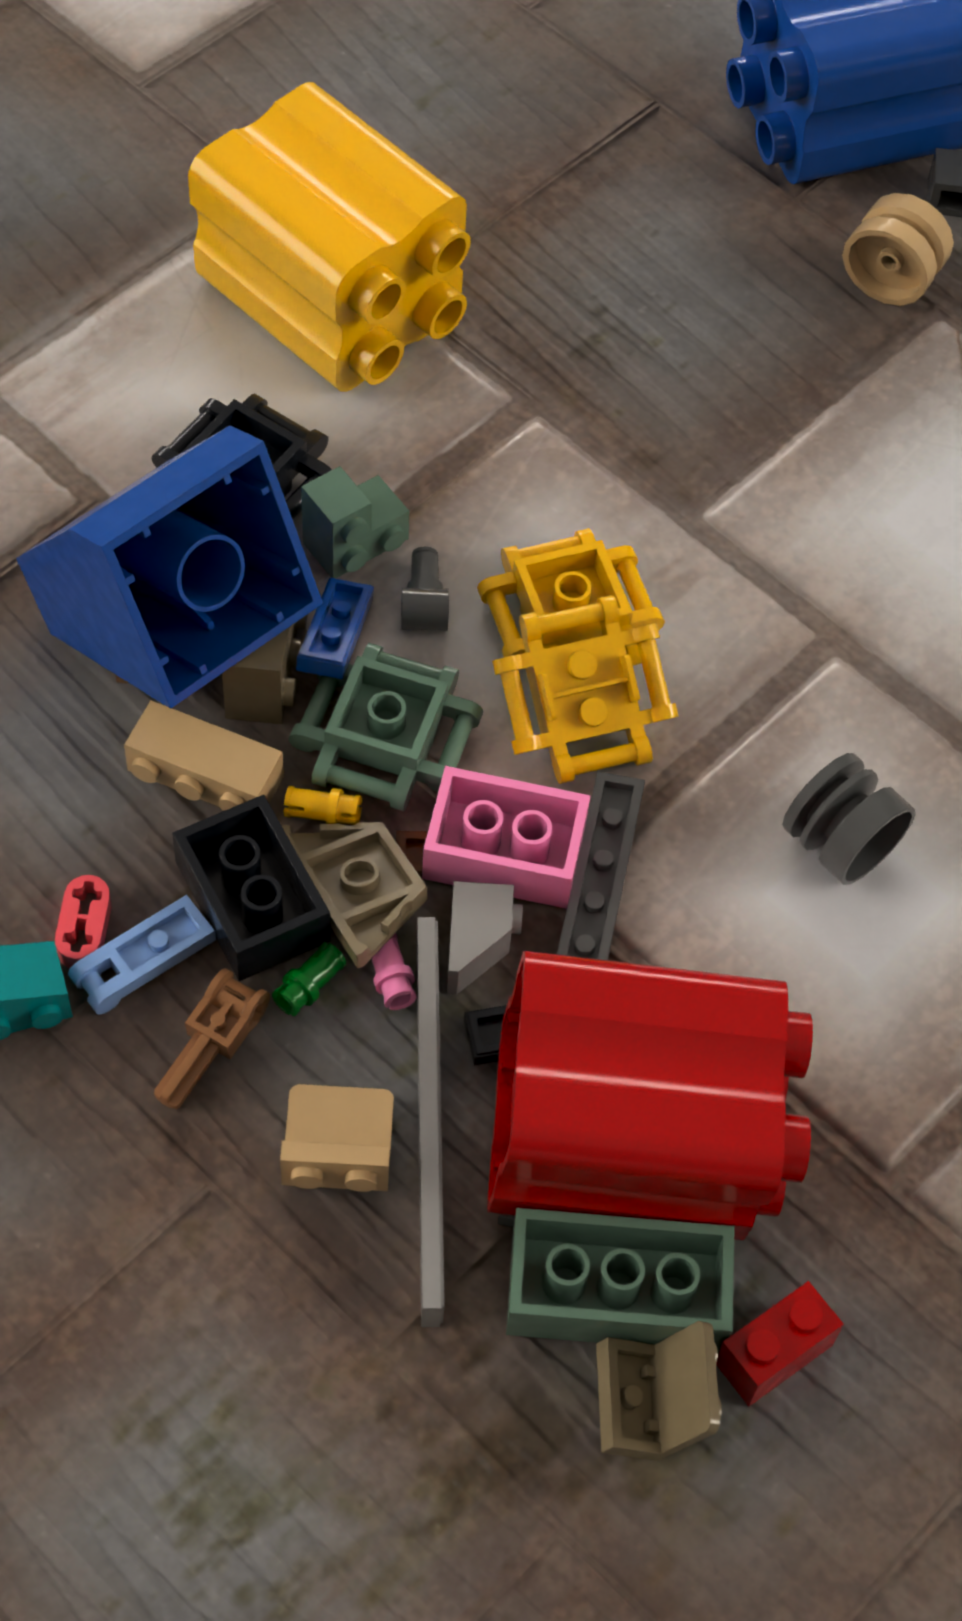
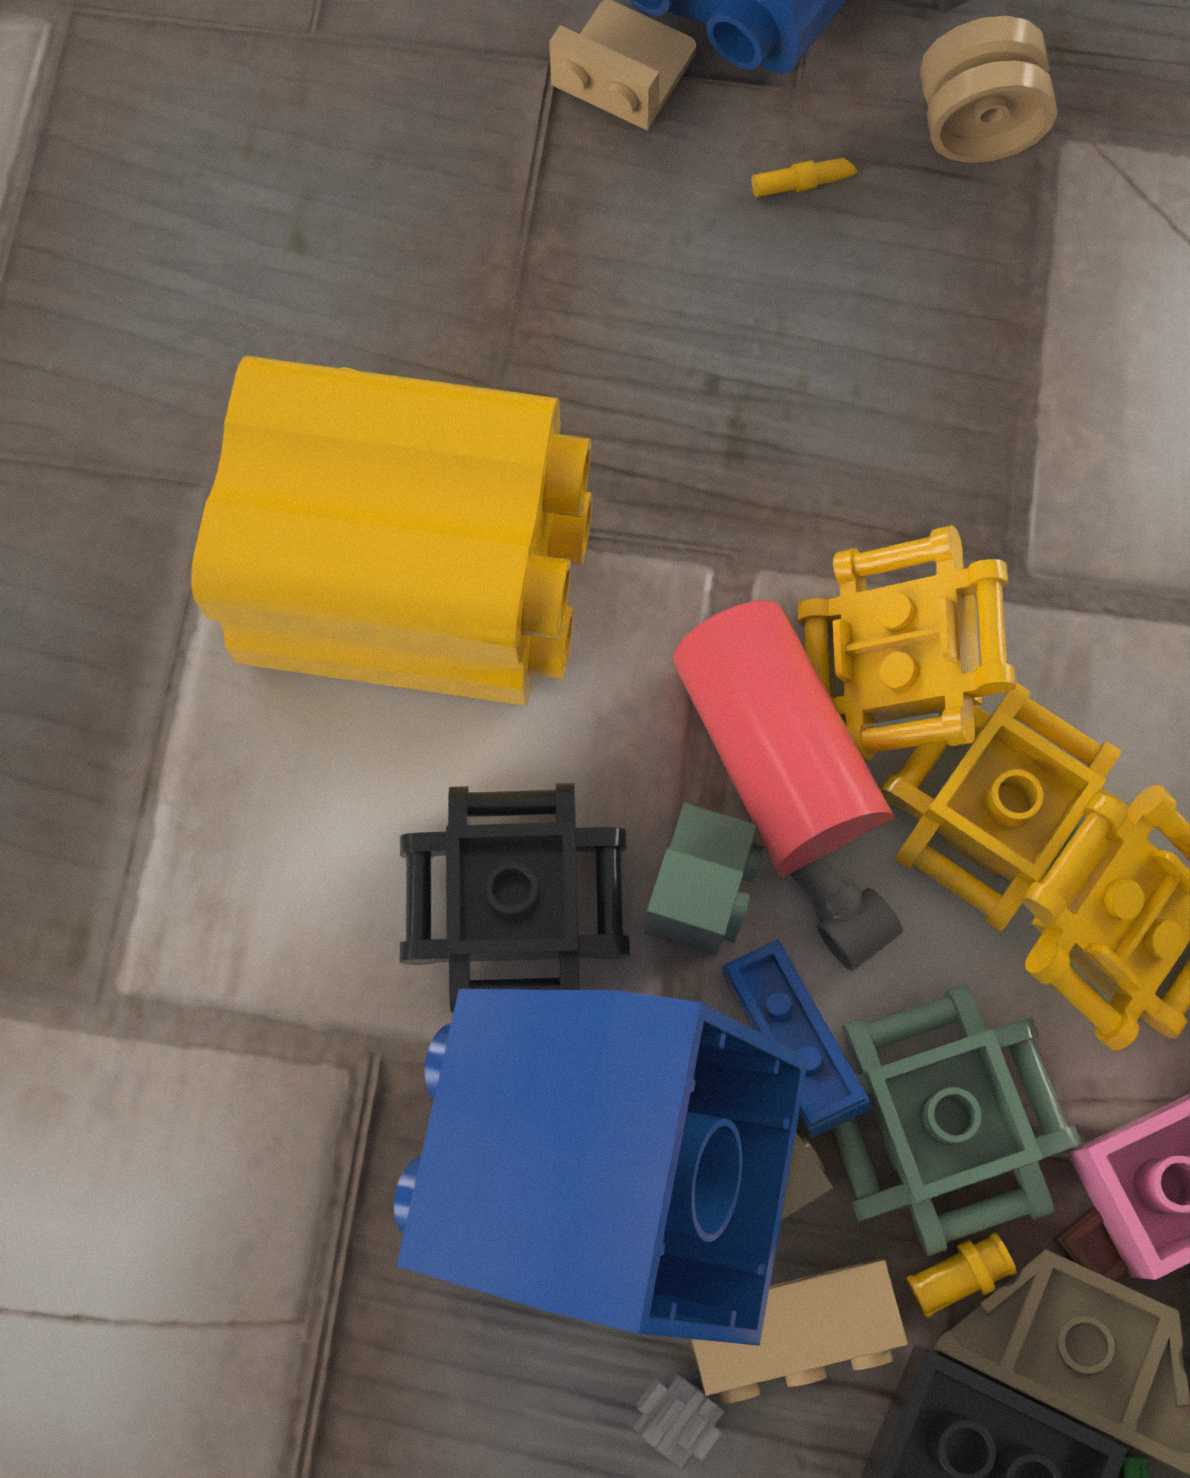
camera: 30 degrees left, 15 degrees up
(100, 757) = (678, 1419): none -> light grey gear
(465, 476) = (779, 734): none -> coral brick
(577, 483) = (911, 643): none -> yellow brick
(694, 120) = (621, 62): none -> tan bracket
(753, 240) = (802, 176): none -> yellow piece

